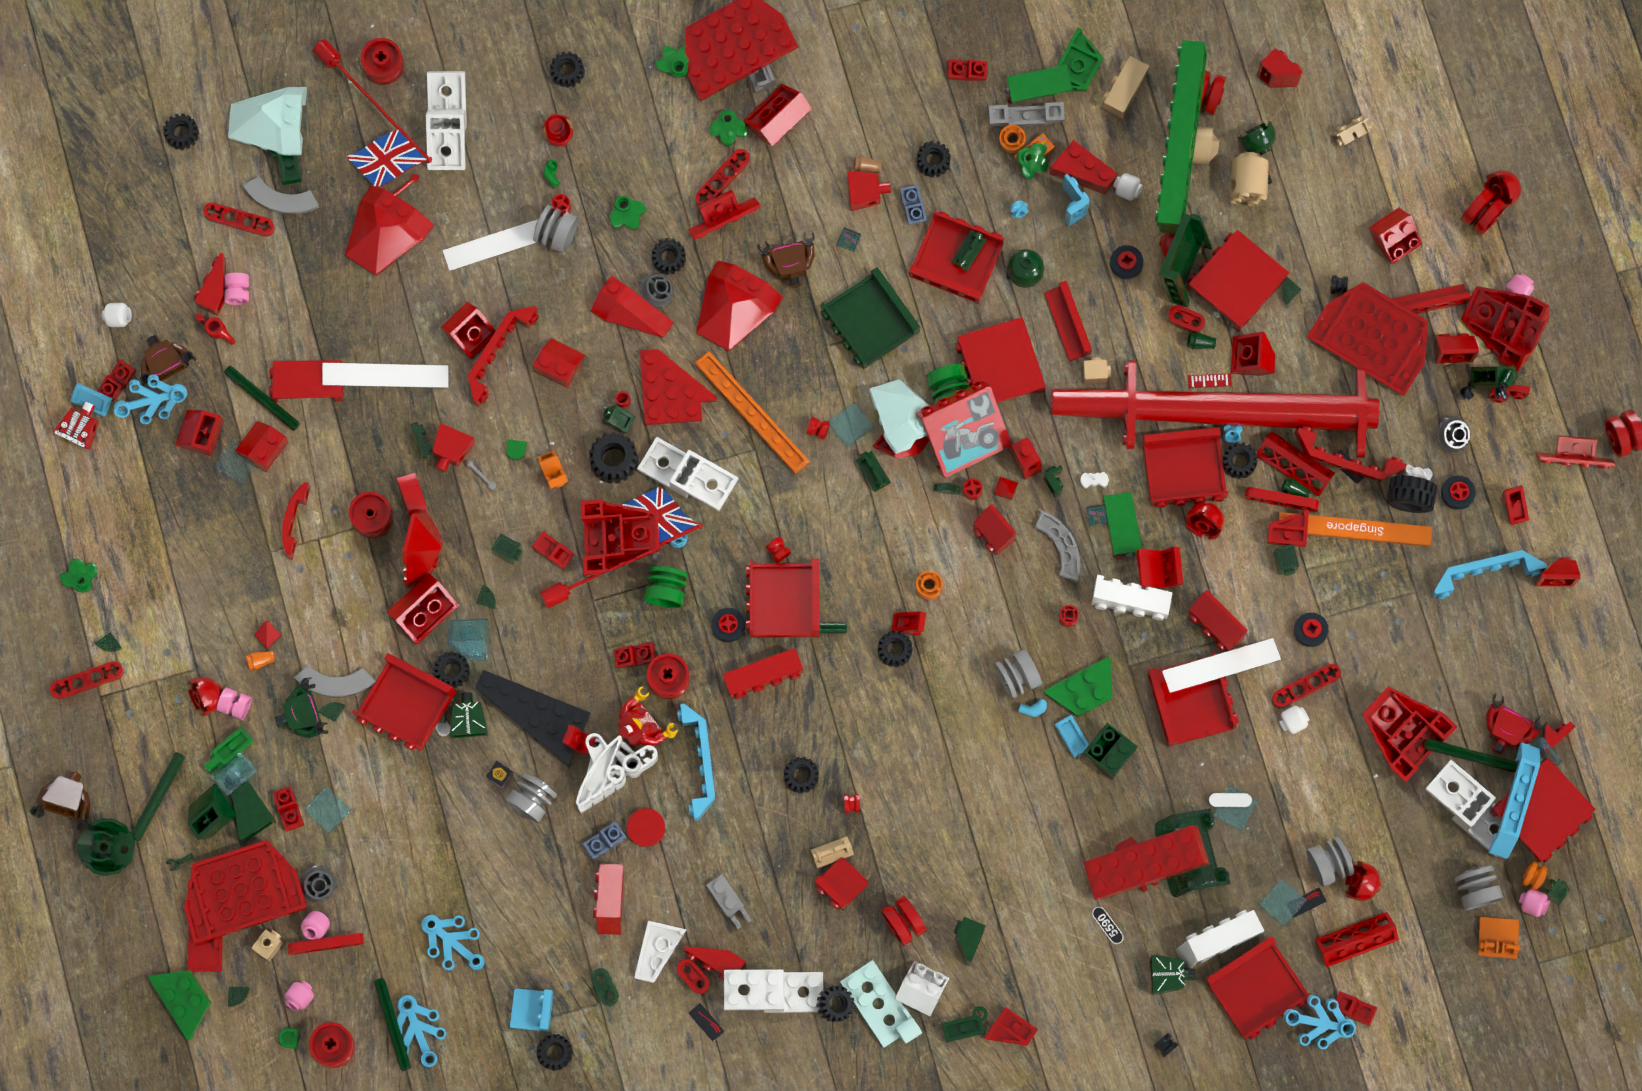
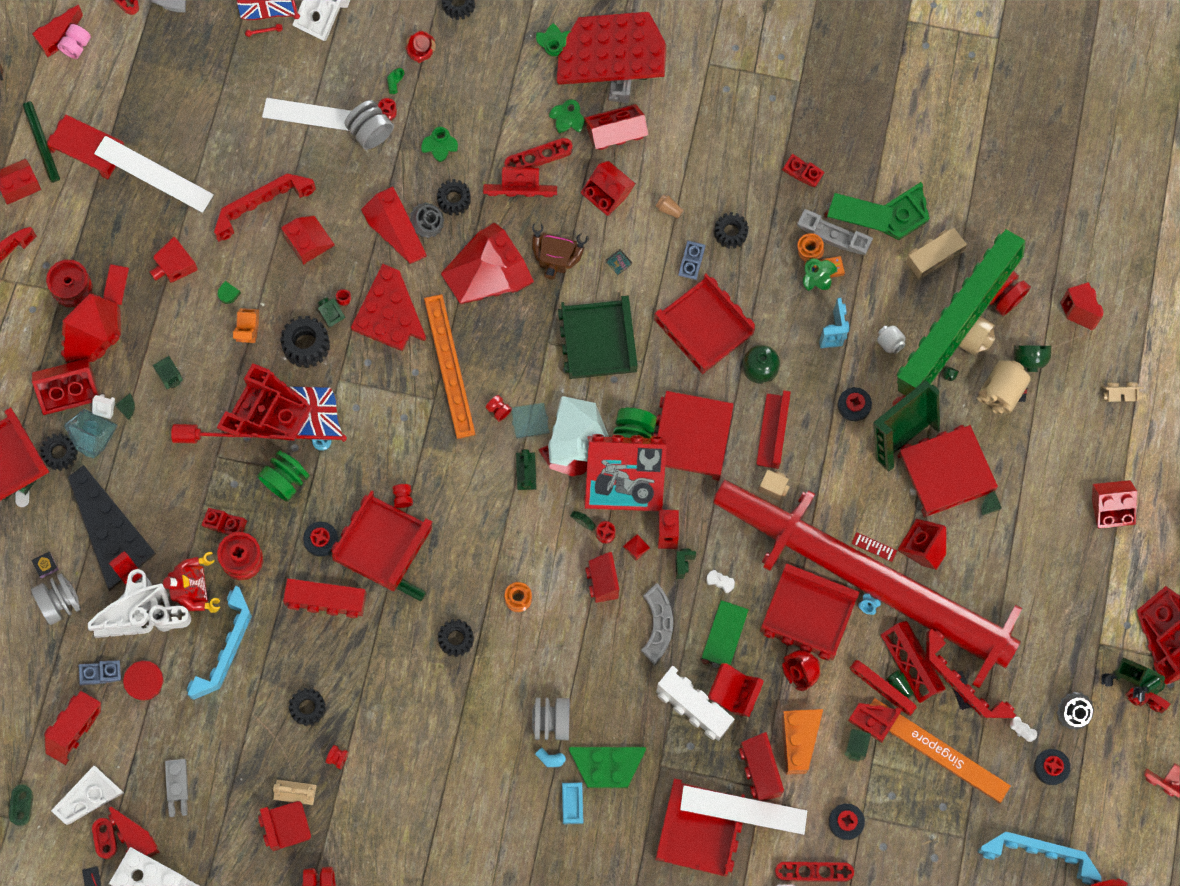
camera: 25 degrees right, 5 degrees down
(215, 328) = (37, 65): red piece -> none
(384, 230) = (227, 57): red wedge -> none
(419, 432) = (150, 249): clear green plate -> none
(467, 609) = (103, 406): none -> white tile
(468, 329) = (246, 172): red slope -> none
(468, 718) = (46, 501): dark green torso -> none
(492, 486) = (189, 314): light grey hinge -> none
(552, 550) = (207, 394): red slope -> none
(688, 474) = (360, 388): white bracket -> none
(802, 176) = (607, 187): none -> red slope
(865, 189) = (656, 226): red torso -> none
(909, 622) = (481, 621): red slope -> none
(969, 250) = (718, 323): dark green hinge -> none
(1019, 209) = (783, 310): medium azure plate -> none
(1066, 618) = (628, 695): red wheel -> none
(1085, 168) = (860, 304): red wedge -> none
(1096, 515) = (705, 614): clear smoke tile -> none
(1110, 751) = (598, 834): dark green slope -> none
(1186, 319) = (883, 481): red plate -> none
(1195, 190) = (951, 372): none -> dark green hinge
(1200, 341) = (884, 507): dark green cone -> none
(1235, 580) = (799, 738): none -> orange wedge
(1240, 471) = (854, 640): black tyre -> none
(1338, 284) = (1038, 521): black wheel -> none
(1374, 335) = (1047, 583): red plate -> none
(1411, 494) = (1006, 744): black tyre -> none
(1435, 299) = (1115, 578): red fence -> none
(1455, 348) = (1117, 633): red slope -> none
(1515, 505) = (1101, 806): red slope -> none

